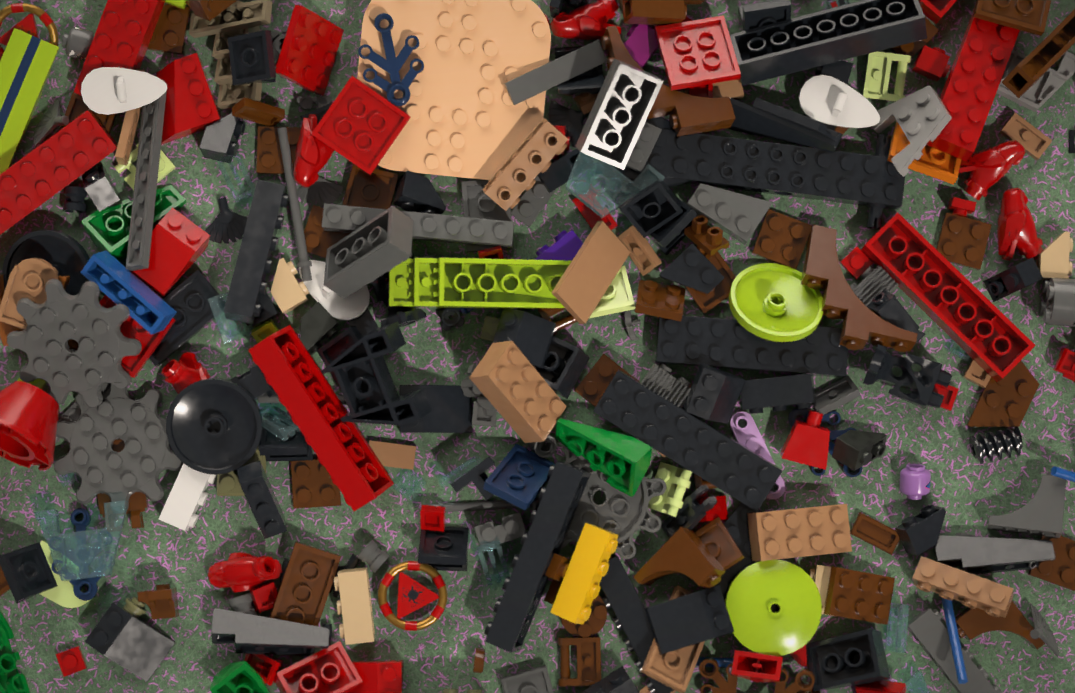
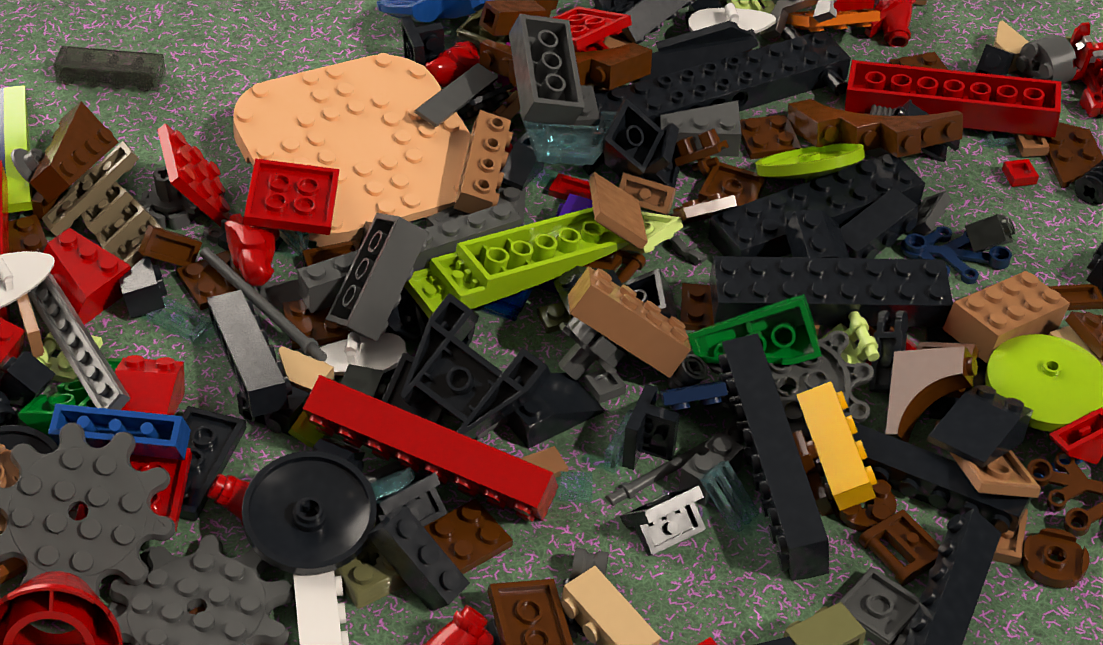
camera: 30 degrees left, 40 degrees down
(226, 224) = (198, 361): black hand -> none
(229, 329) = (251, 431): clear light blue tile -> none
(252, 58) = (138, 188): black bracket -> none
(392, 64) = (262, 114): dark blue plant -> none
(412, 595) = (666, 576): piece -> none
(432, 518) = (627, 494): red plate -> none
(447, 323) = (502, 326): black plate -> none
(479, 660) = (795, 603): reddish brown tile -> none
(693, 271) = (712, 179): black wing -> none
(808, 442) = (945, 242): red torso -> none
(915, 481) = (1064, 237): medium lavender head -> none
(920, 382) = (987, 163): black hips -> none
(961, 206) = (897, 47): red plate -> none
(1017, 227) = (955, 37): red animal -> none

